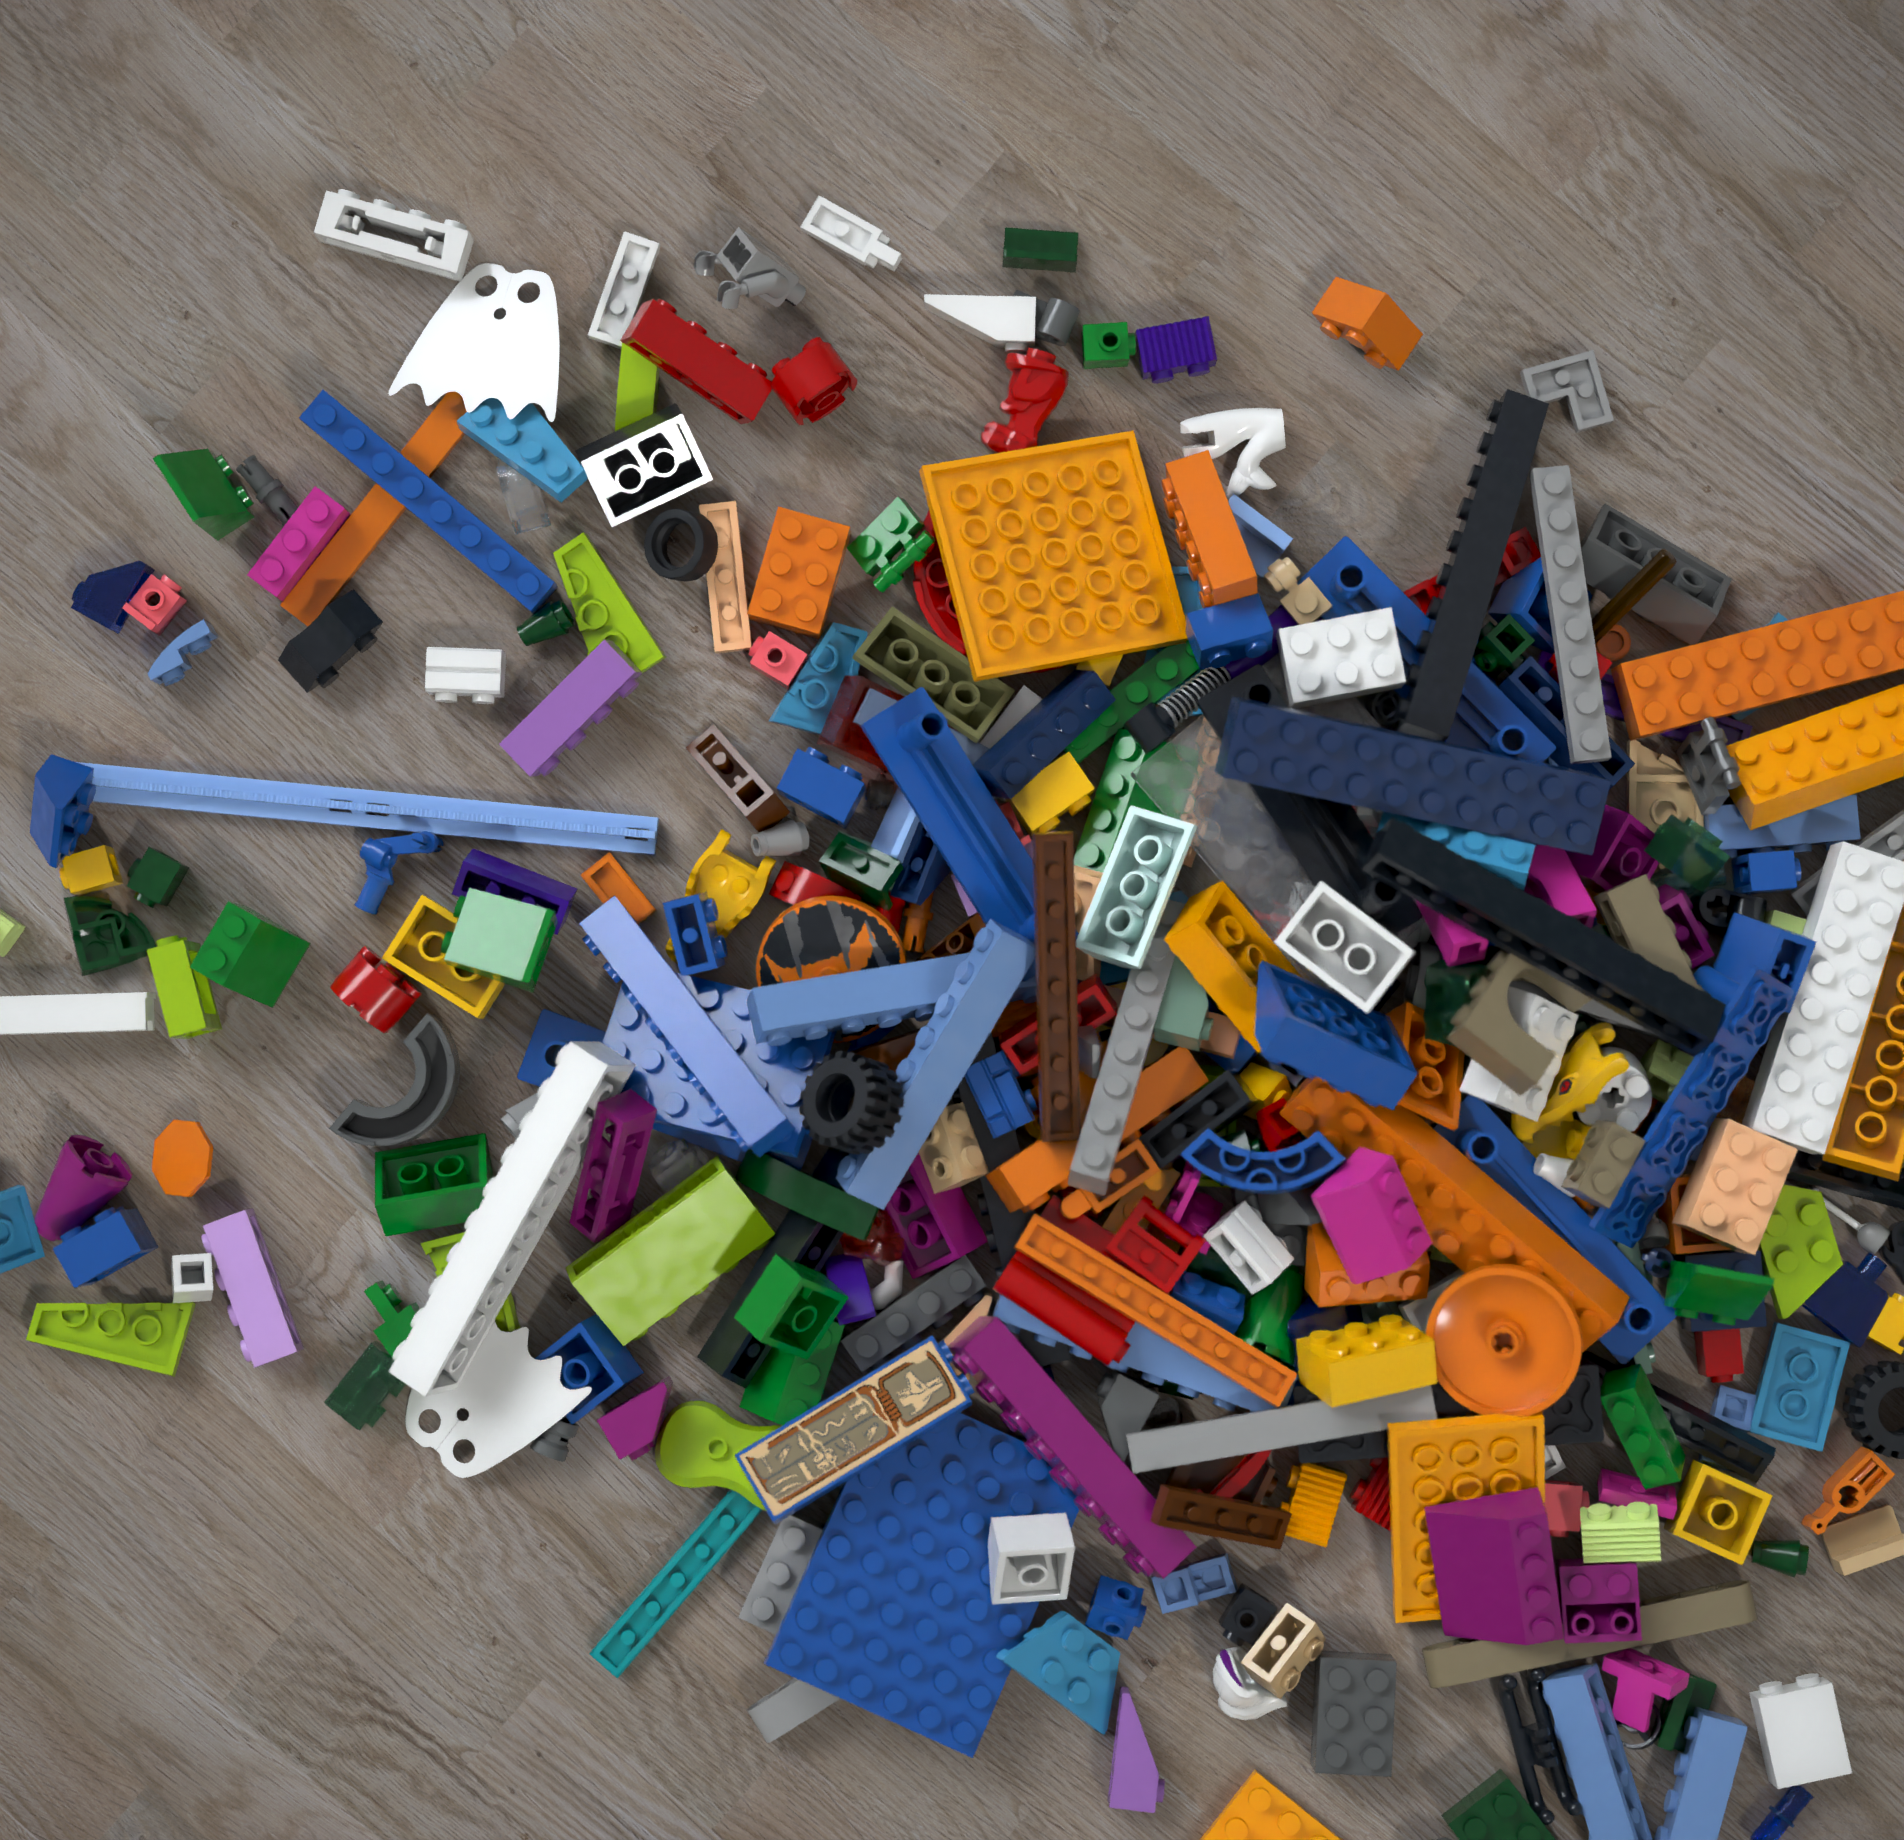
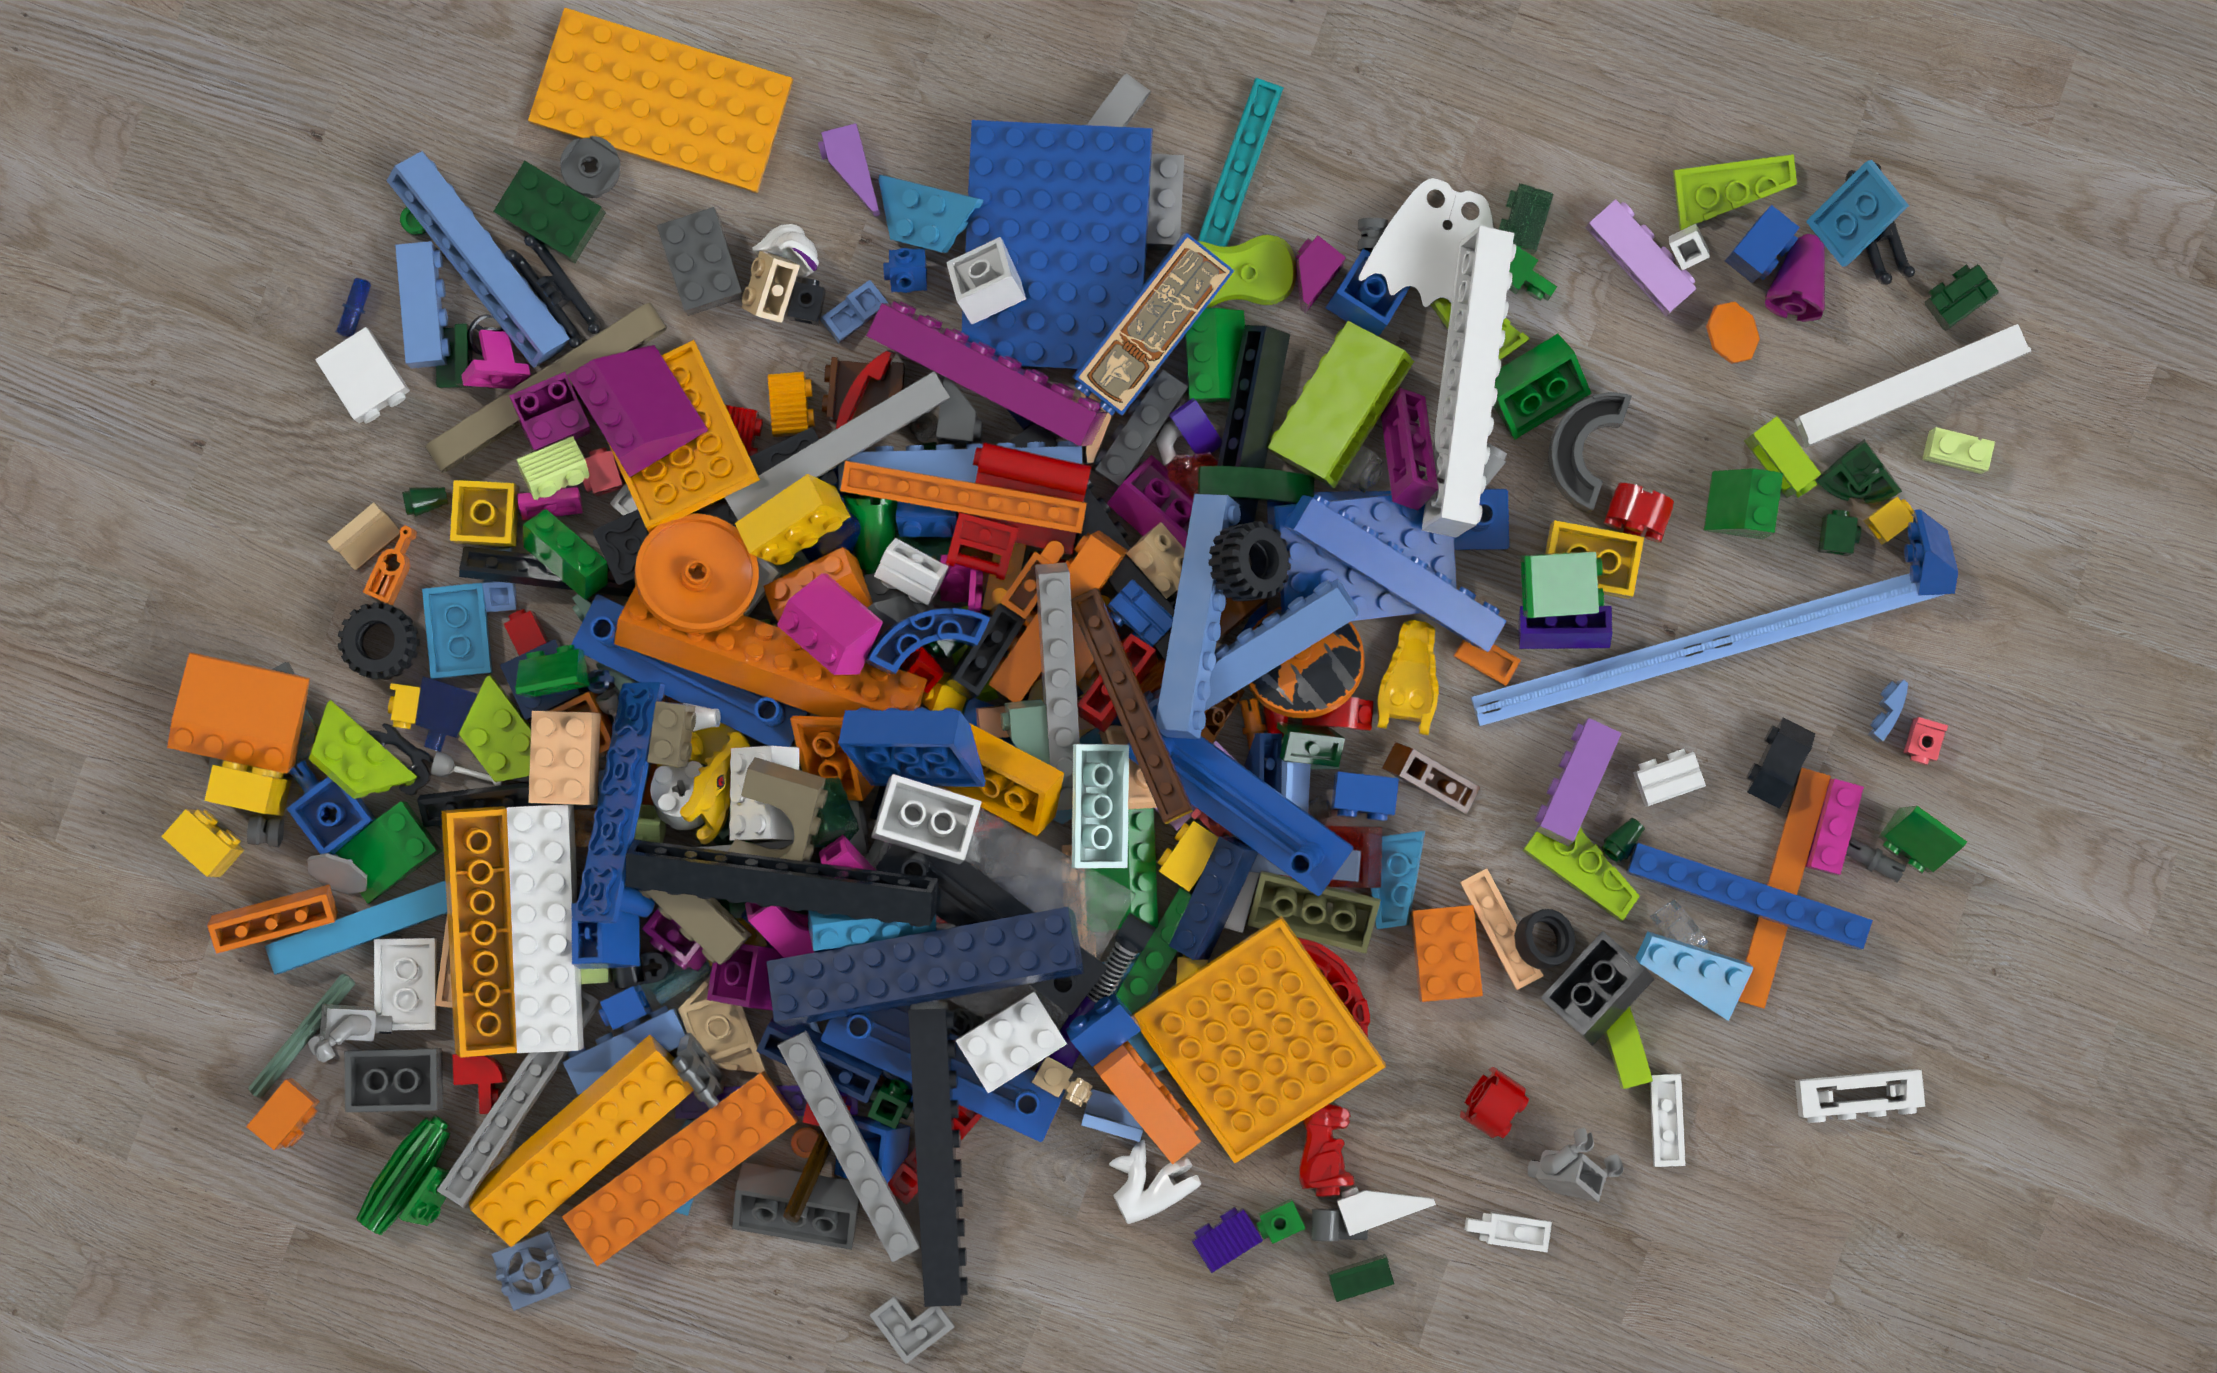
camera: 165 degrees right, 0 degrees up
(108, 591) = (1964, 733): clear blue slope -> none
(381, 856) = (1676, 613): blue pin -> none
(488, 357) = (1750, 1026): white piece -> none
(695, 933) = (1416, 645): blue brick -> none
(698, 361) = (1588, 1083): red brick -> none
(777, 659) = (1437, 881): coral brick -> none
(781, 840) = (1379, 744): light grey cone -> none
(791, 1307) = (1234, 395): green brick -> none
(885, 538) = (1392, 1004): green plate -> none
(1088, 1051) = (1088, 668): flat silver slope -> none
(1220, 1517) = (856, 364): reddish brown plate -> none
(1368, 322) = (1087, 1315): orange brick -> none
(1688, 851) = (692, 997): clear green brick -> none

